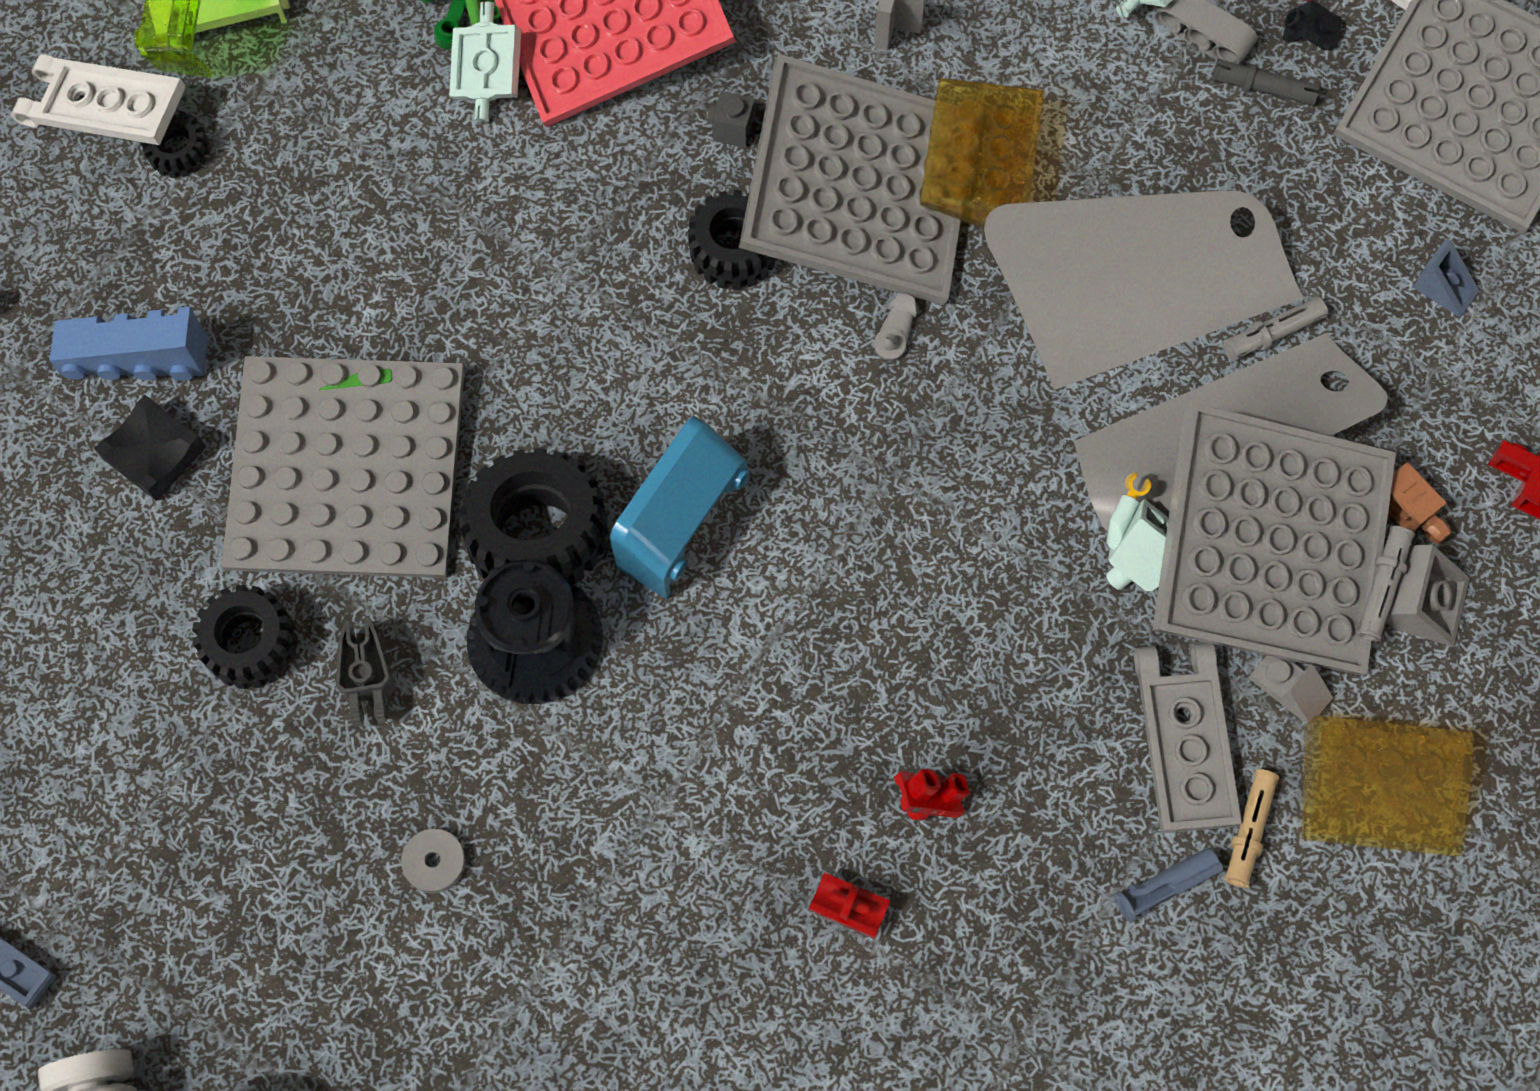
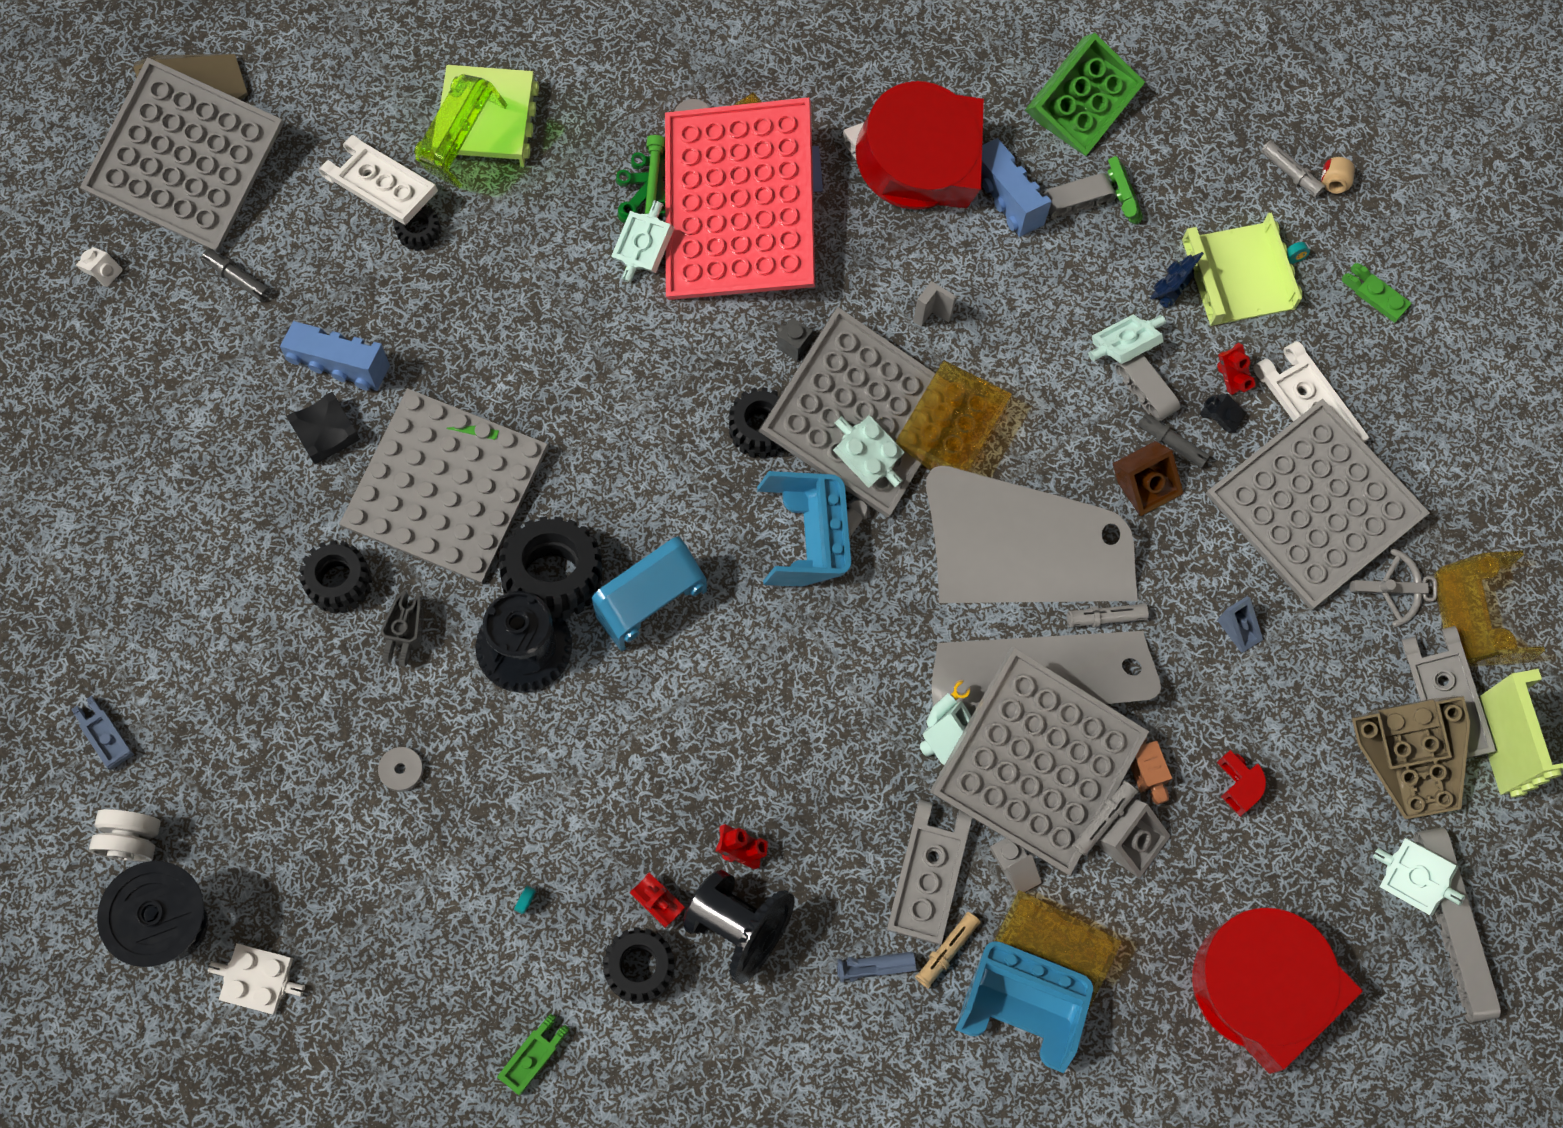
camera: 15 degrees right, 0 degrees up
(672, 971) = (525, 900): none -> teal tile
(867, 965) = (632, 941): none -> black tyre
(870, 339) = (825, 523): none -> dark azure windscreen
(890, 225) = (868, 451): none -> light aqua plate
(970, 891) = (750, 929): none -> black piece
(1255, 137) = (1149, 477): none -> reddish brown slope
(1388, 848) = (1031, 997): none -> dark azure windscreen

